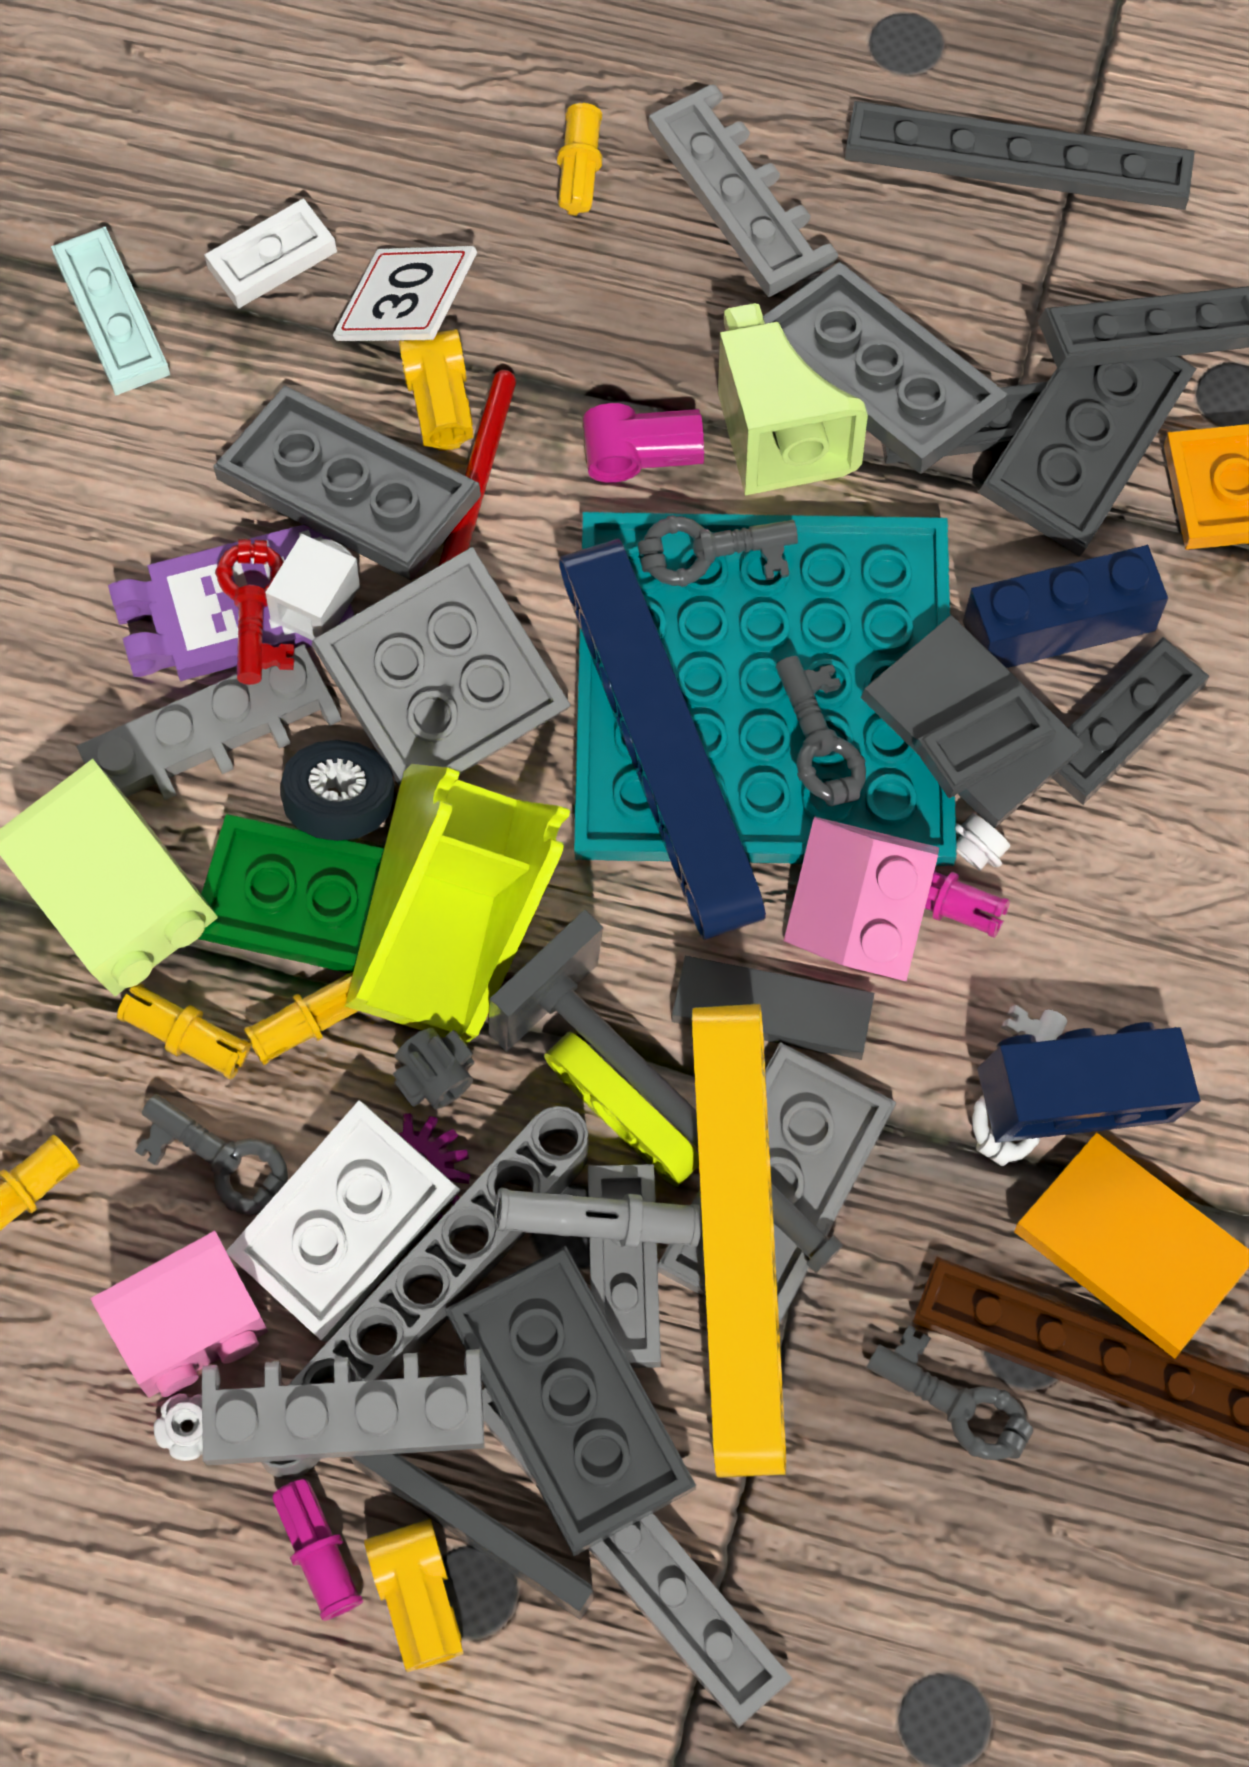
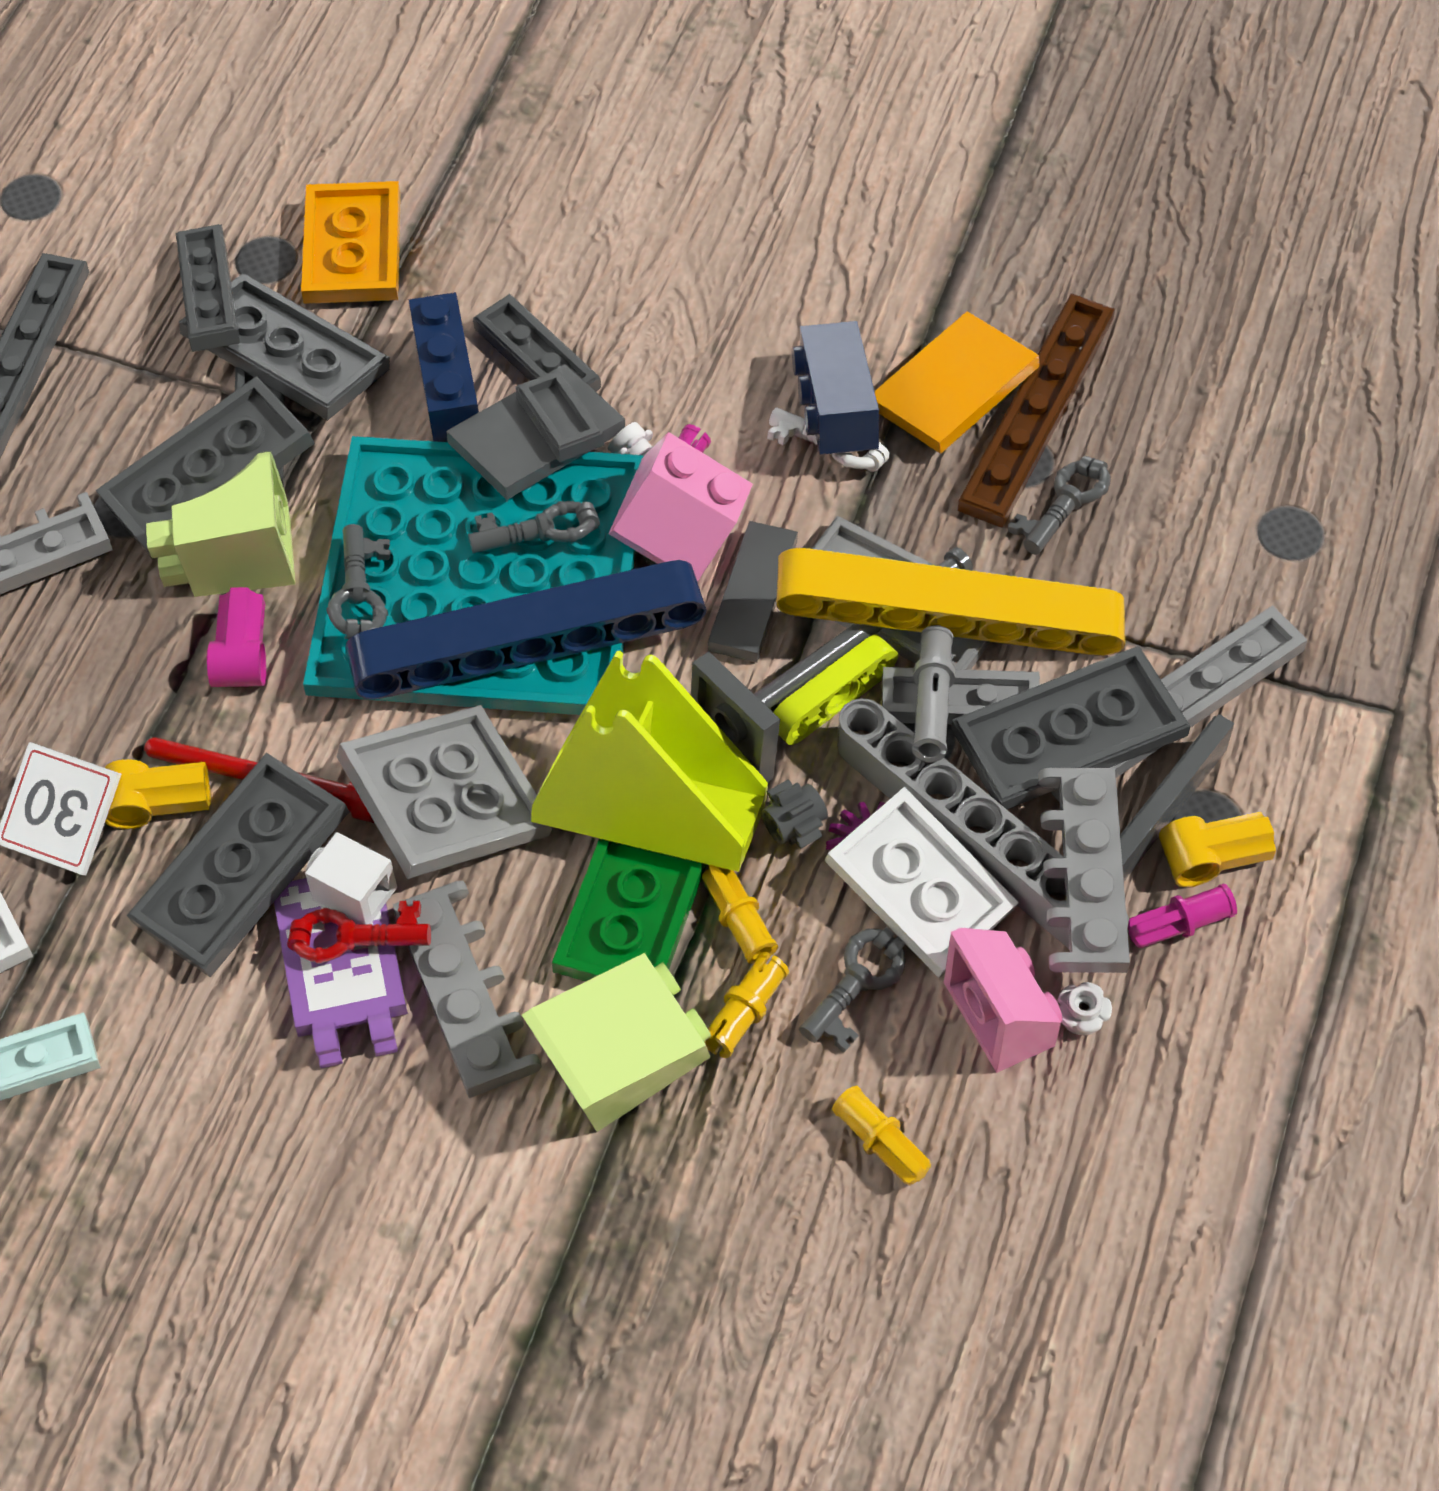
camera: 85 degrees left, 10 degrees down
(352, 771) = (515, 884): black bush -> none

